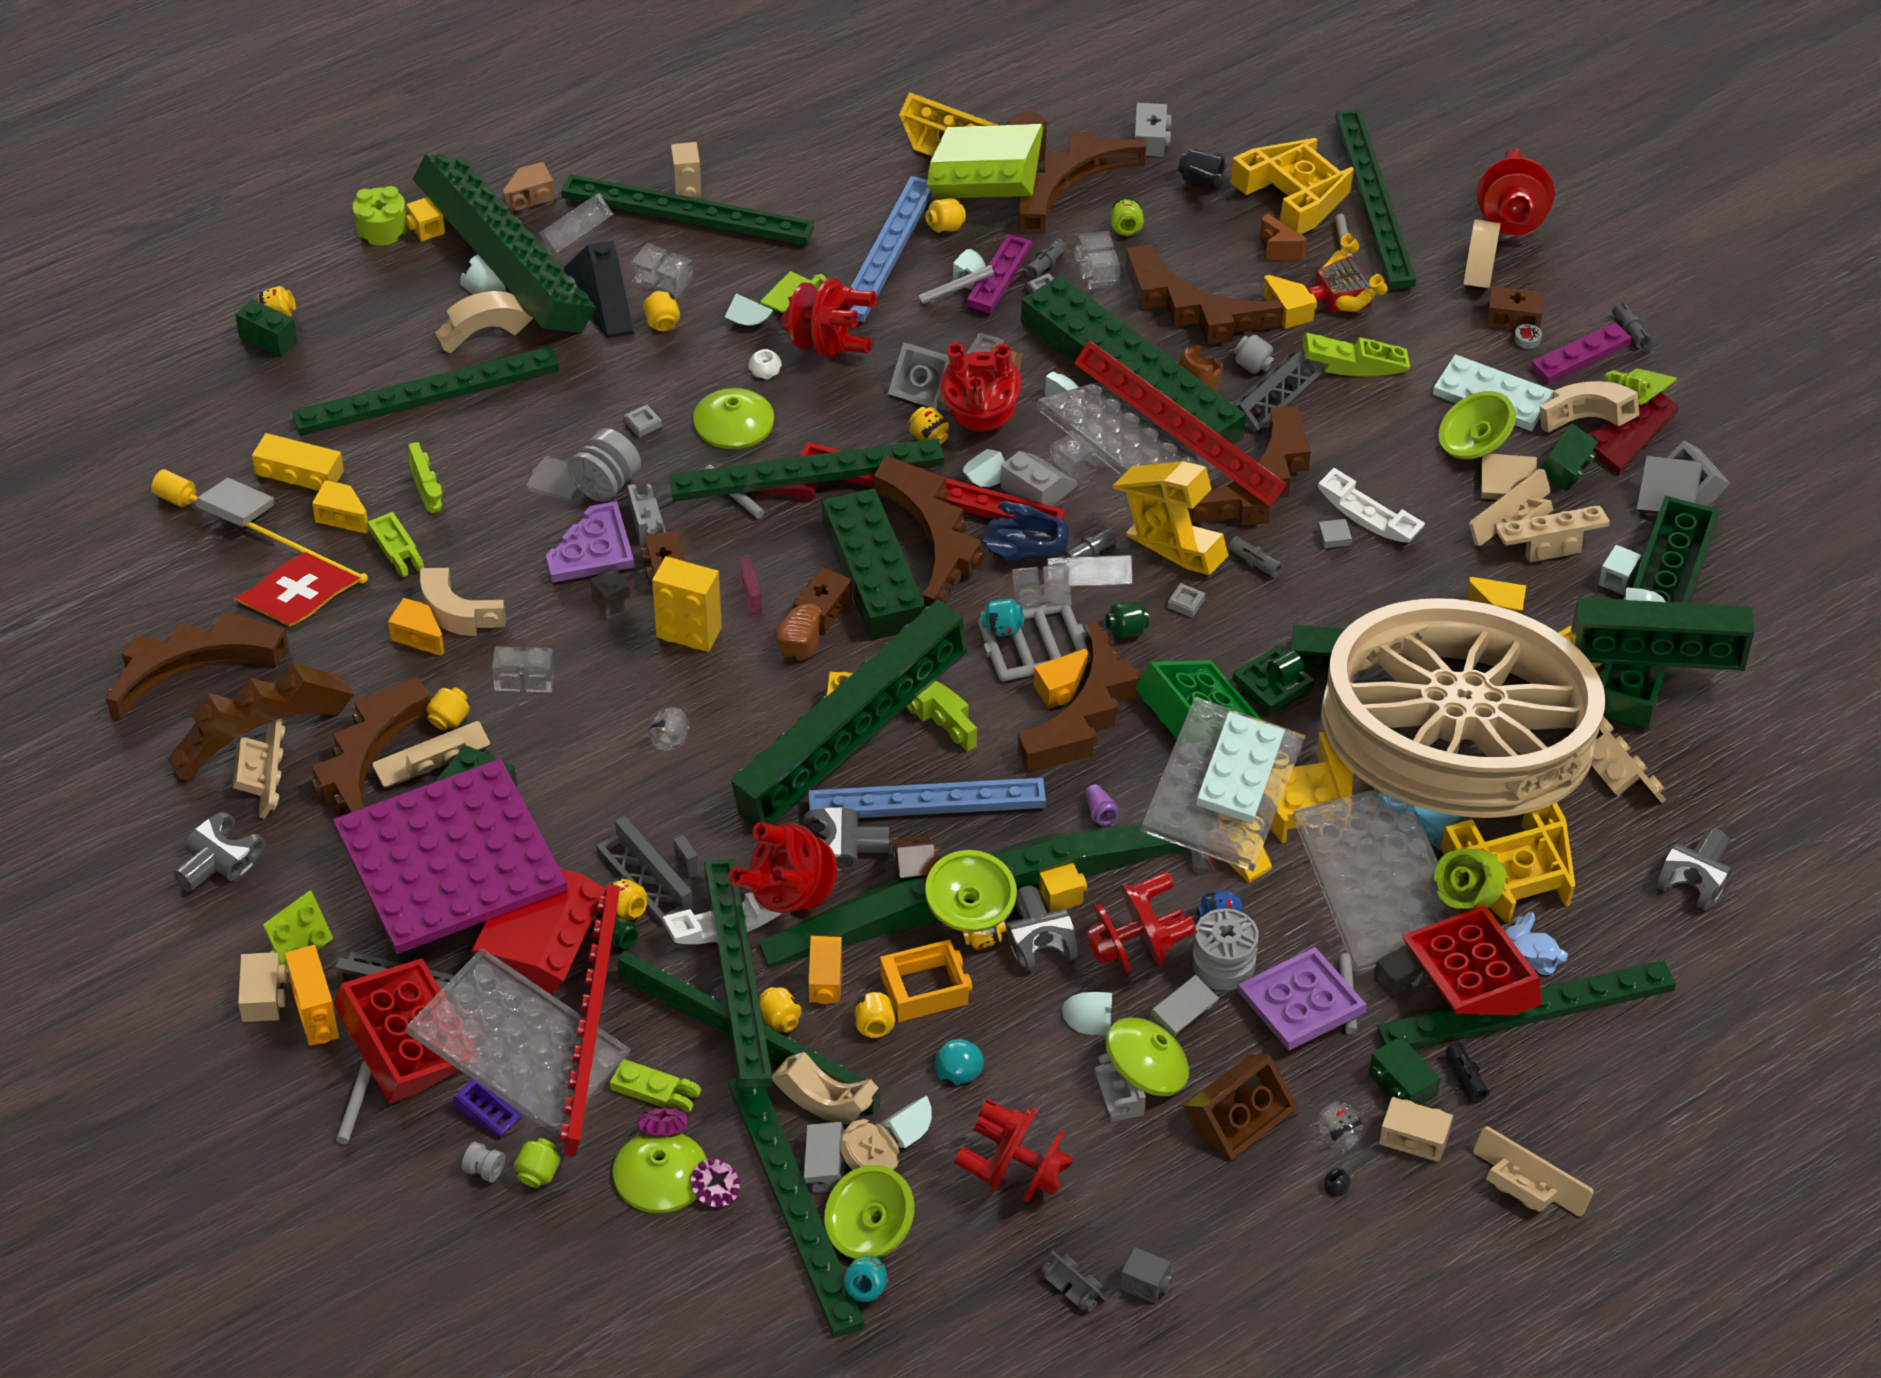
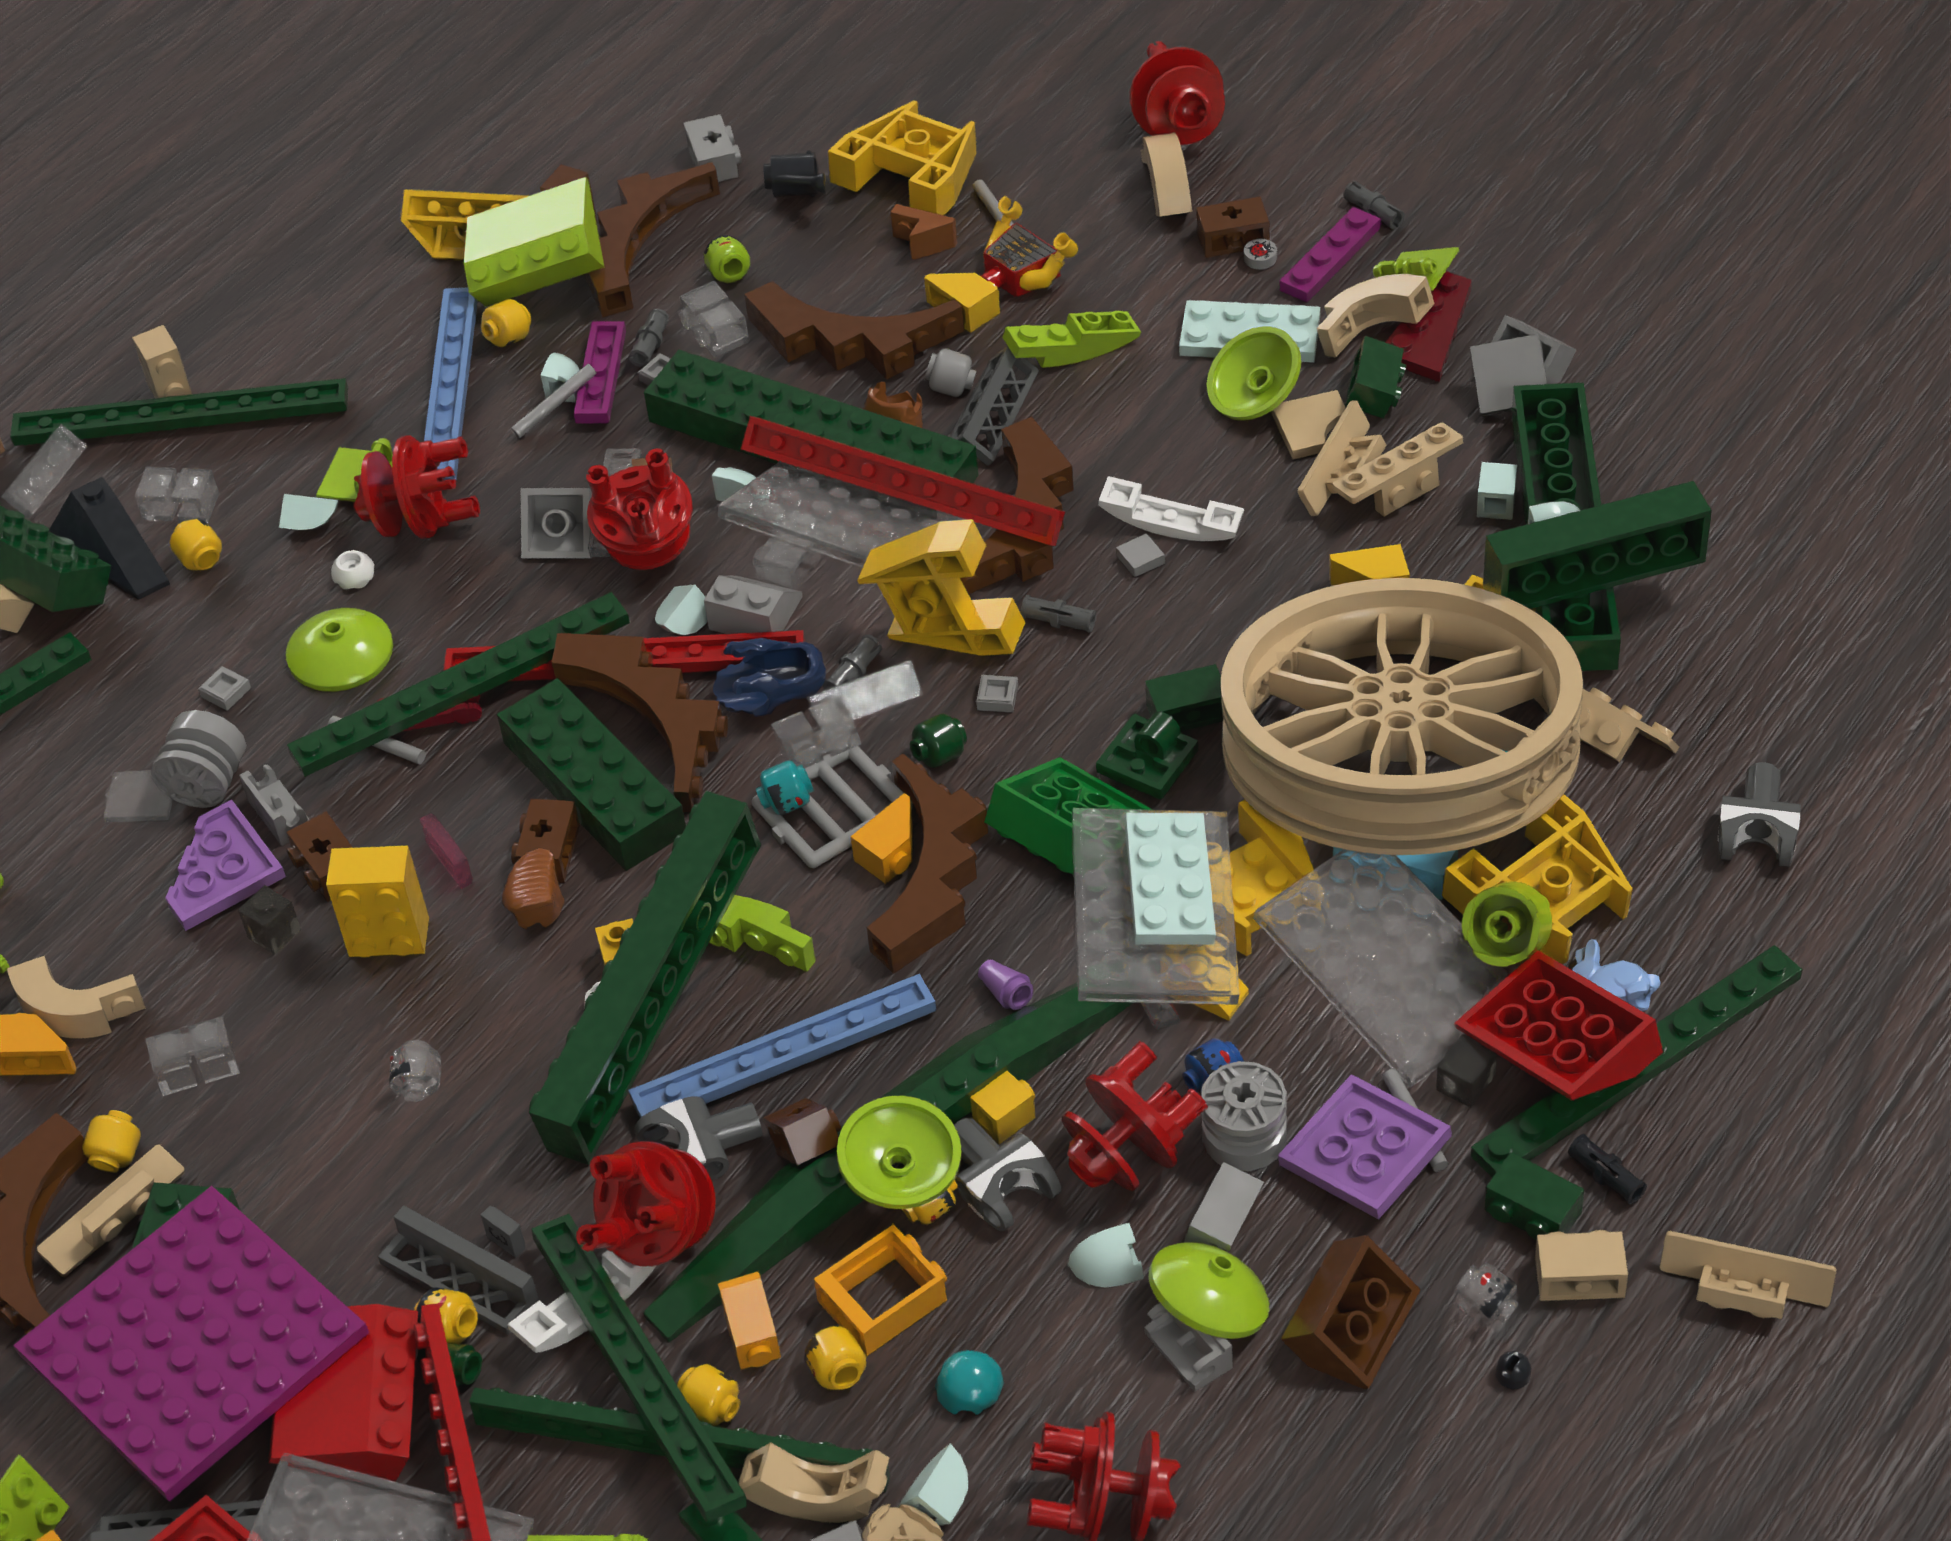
camera: 15 degrees left, 0 degrees up
(928, 424) = (590, 580): yellow head -> none
(1375, 199) = (1012, 151): dark green plate -> none

